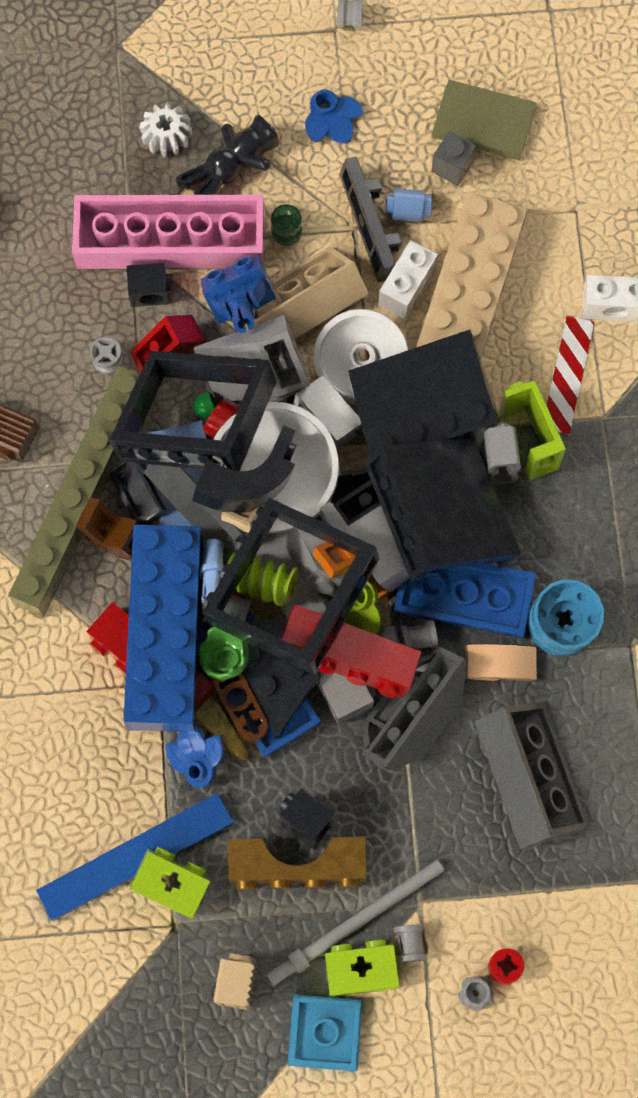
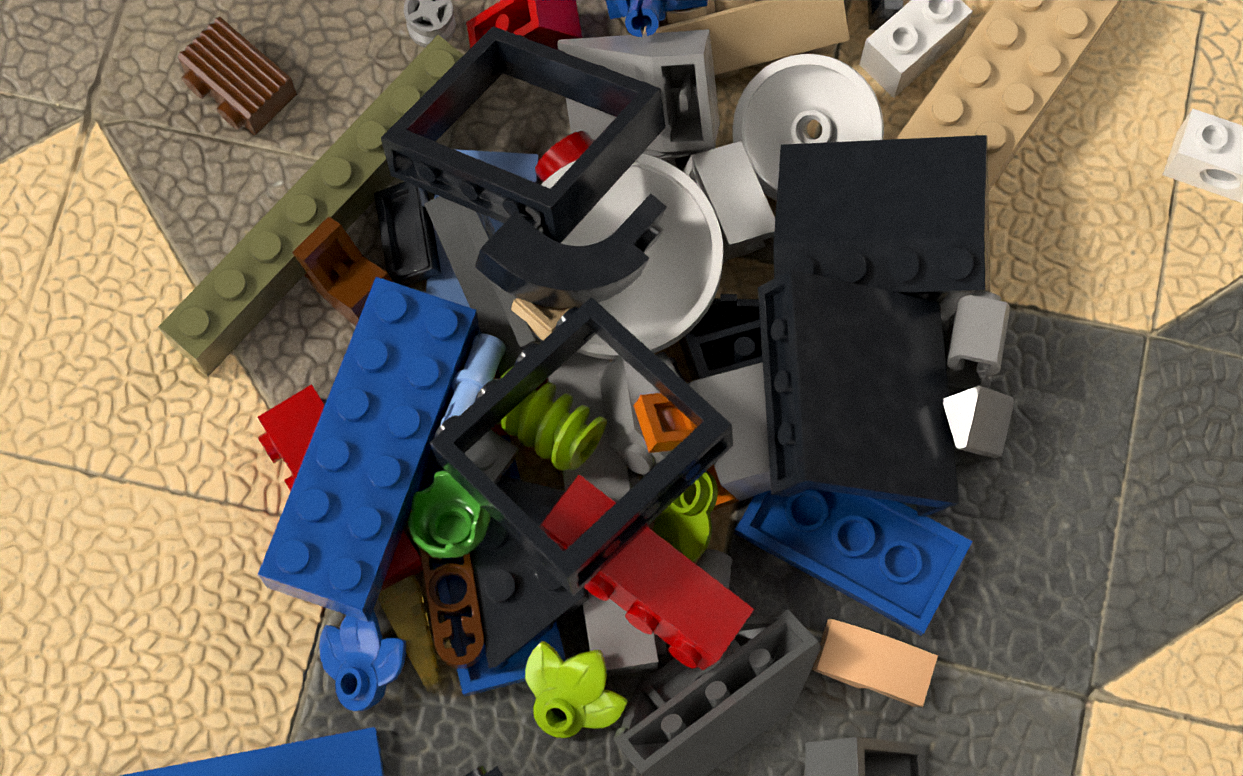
camera: 15 degrees right, 0 degrees up
(204, 405) = (550, 131): green hinge -> none
(328, 732) = (573, 687): none -> lime plate
(332, 517) = (682, 358): light grey plate -> none
(419, 636) = (762, 582): light grey bush -> none
(518, 500) = (979, 420): none -> light grey slope
(549, 454) = (1049, 365): lime panel -> none
(569, 372) = (1115, 253): sticker -> none
(584, 616) = (1028, 630): dark azure wheel -> none

